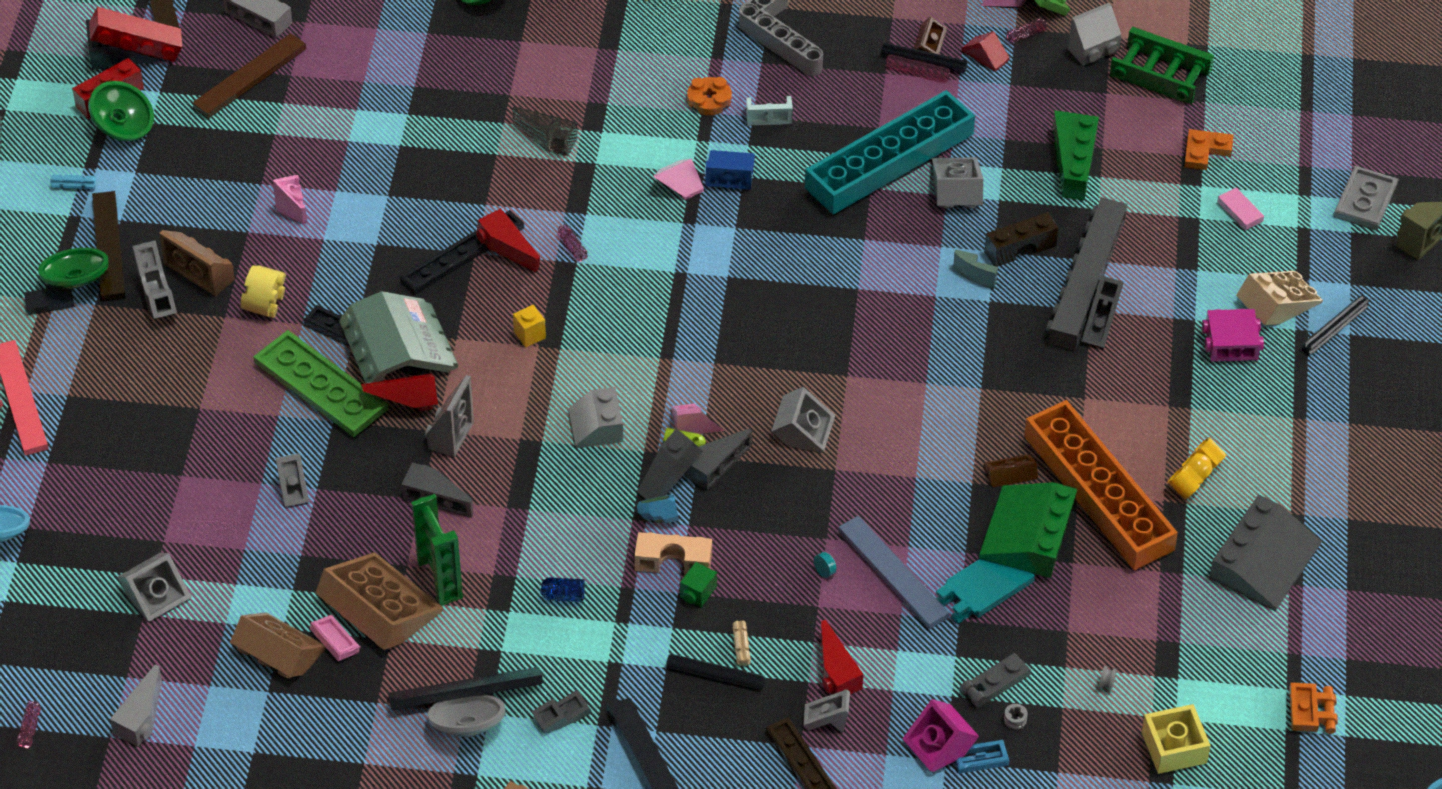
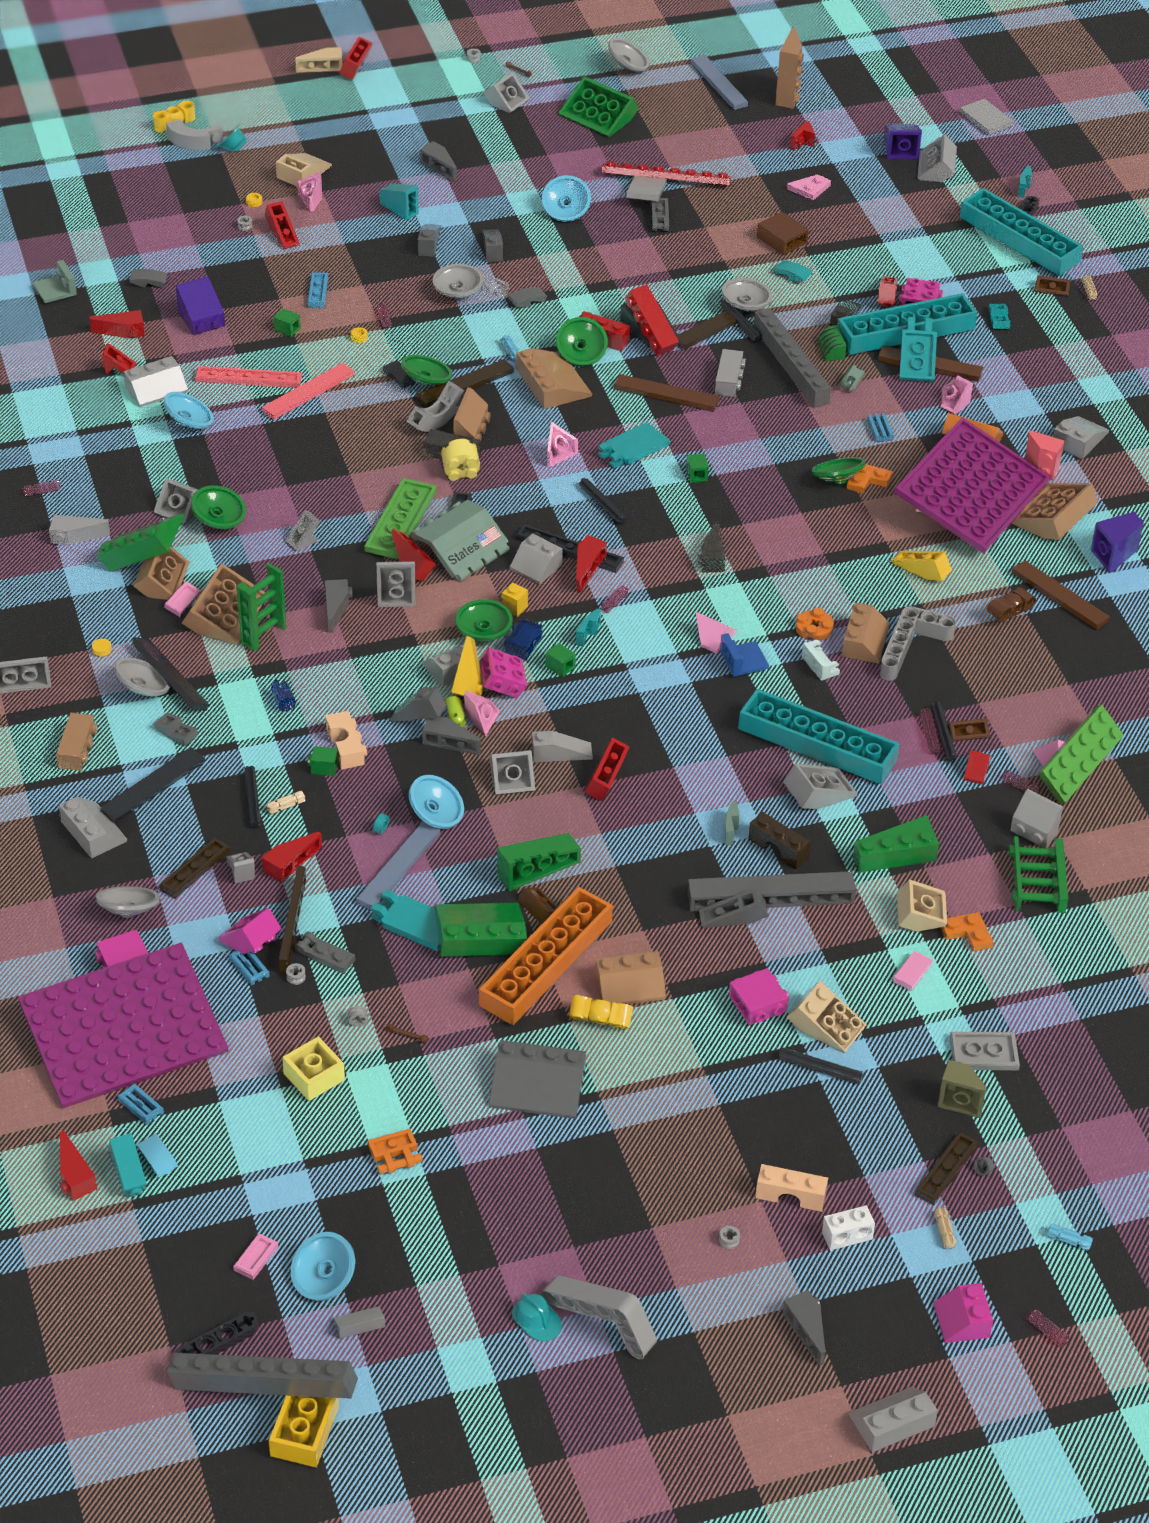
camera: 65 degrees right, 5 degrees down
(156, 166) = (550, 377): none -> medium nougat slope
(201, 546) = (218, 507): none -> green dish
(217, 299) = (437, 440): none -> clear smoke slope
(226, 638) = (140, 543): none -> green slope
(322, 134) = (633, 445): none -> teal tile
(373, 745) = (101, 647): none -> yellow tile
(402, 94) = (697, 468): none -> green brick
(402, 195) = (602, 500): none -> black axle
(471, 284) = (537, 559): none -> light grey slope
(554, 362) = (484, 620): none -> green dish
(597, 341) = (523, 639): none -> clear blue brick
(611, 282) = (588, 626): none -> teal slope
(642, 404) = (468, 672): none -> yellow slope
(649, 321) = (560, 660): none -> green brick
(651, 374) = (503, 672): none -> dark pink brick
(659, 509) = (383, 720): dark azure rock -> none
(749, 63) = (865, 634): none -> medium nougat slope
(786, 371) = (554, 746): none -> light grey slope
(825, 502) = (436, 801): none -> medium azure dish
(849, 338) = (606, 769): none -> red brick
(932, 689) = (292, 919): none -> dark brown tile
(954, 446) = (536, 859): none -> green wedge
(1159, 429) = (630, 978): none -> medium nougat slope
(1159, 633) = (390, 1028): none -> reddish brown hinge
(1168, 167) = (921, 907): none -> tan slope

